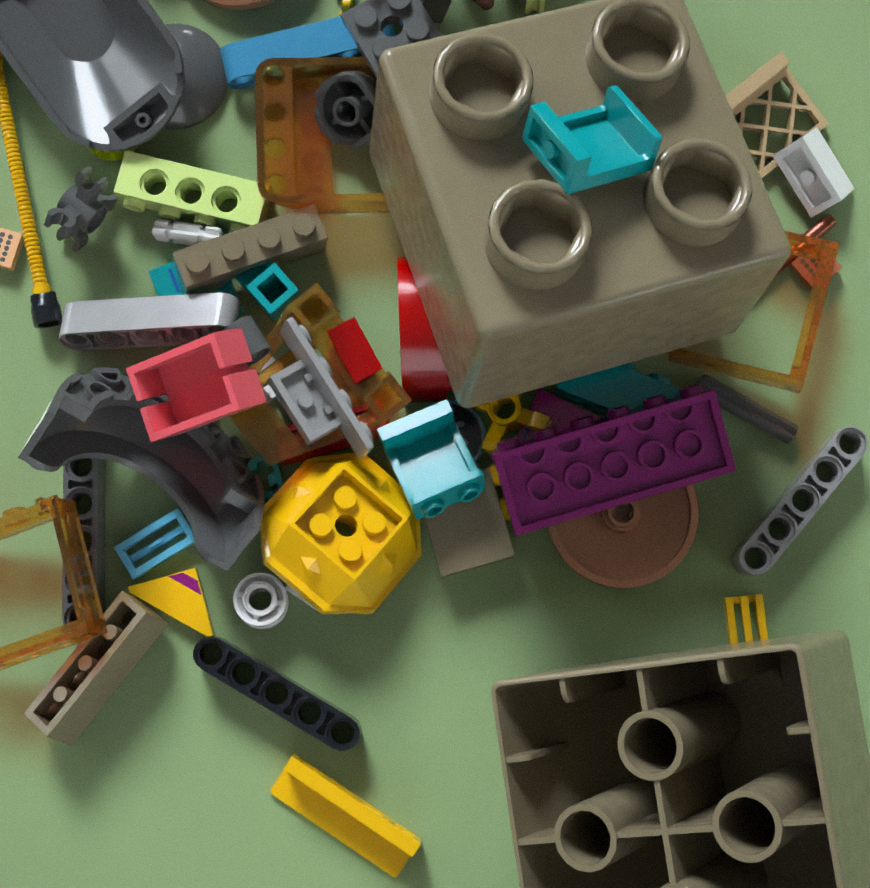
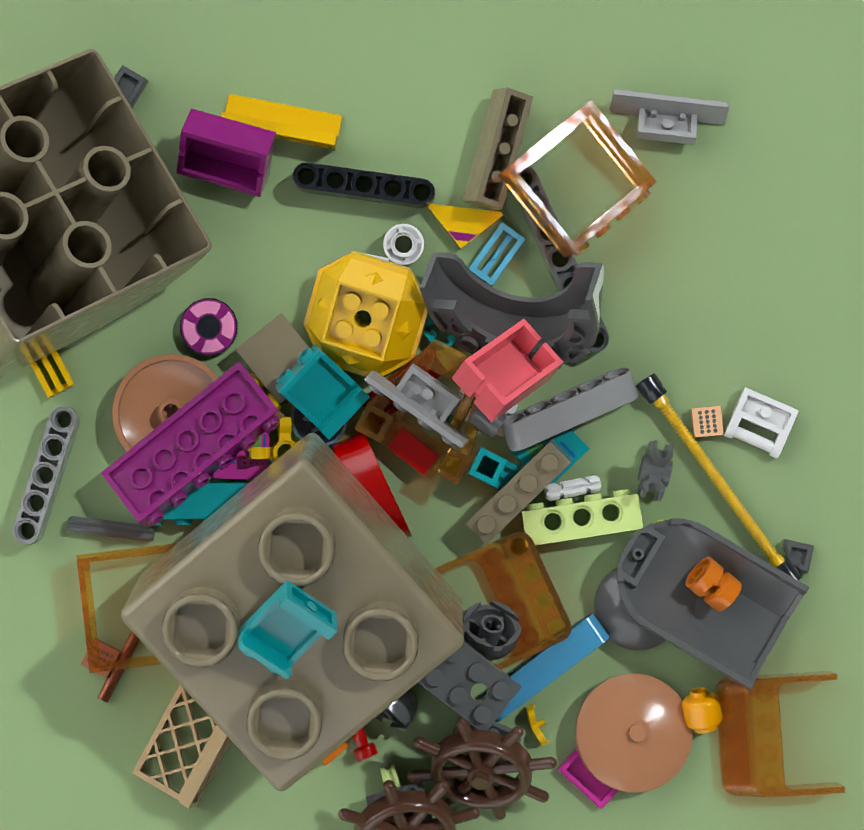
camera: 160 degrees right, 5 degrees up
(73, 55) = (717, 587): none -> orange wheel
(428, 803) = (225, 152): none -> magenta piece
(535, 599) = (209, 327): none -> tile
(814, 172) = (127, 728): white panel -> none

